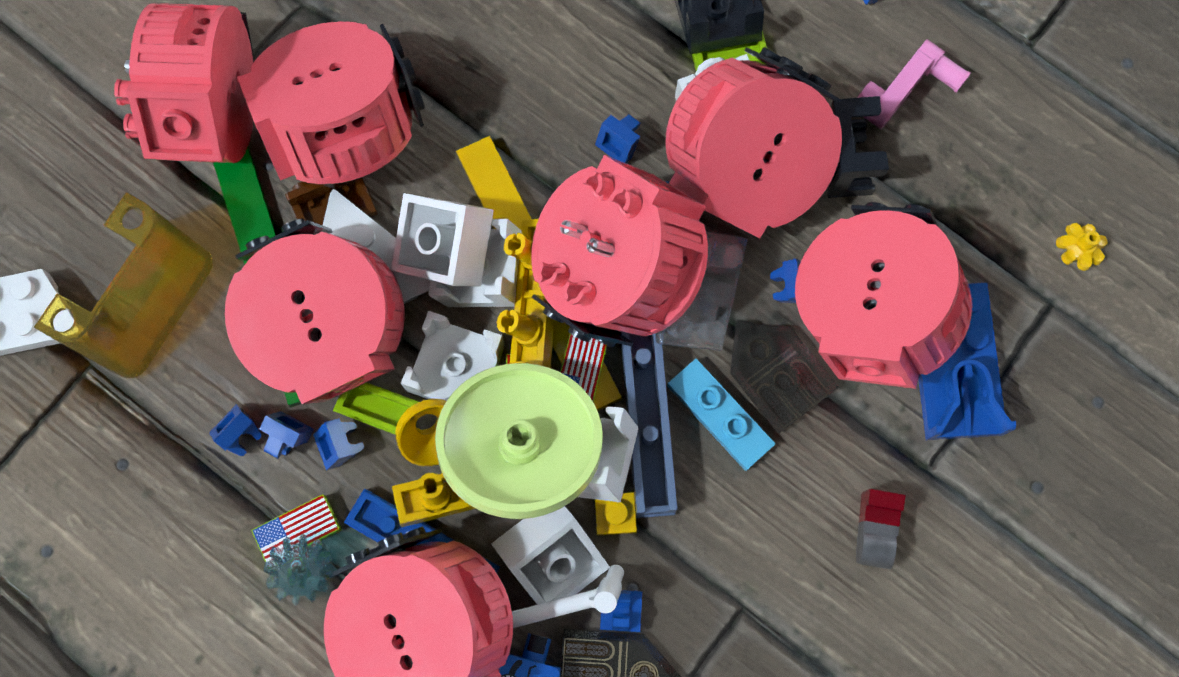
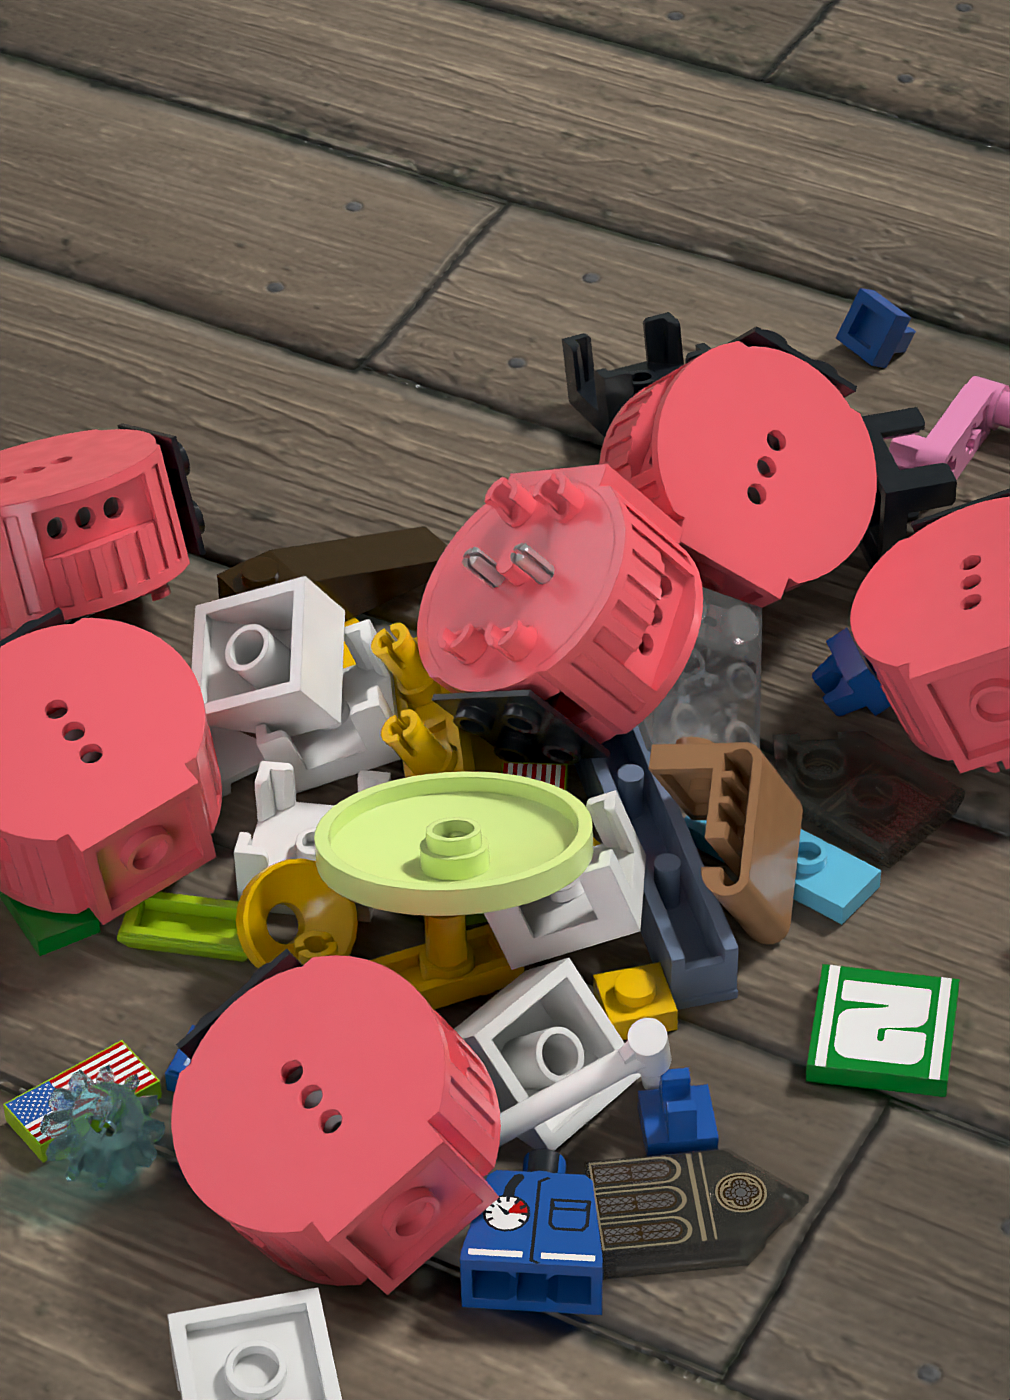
camera: 10 degrees left, 35 degrees down
(284, 433) = (41, 968): tile -> none
(333, 443) = (131, 971): blue tile -> none
(498, 154) = (351, 571): none -> dark brown slope
(702, 427) = (749, 824): none -> medium nougat piece
(750, 563) = (883, 1030): none -> tile

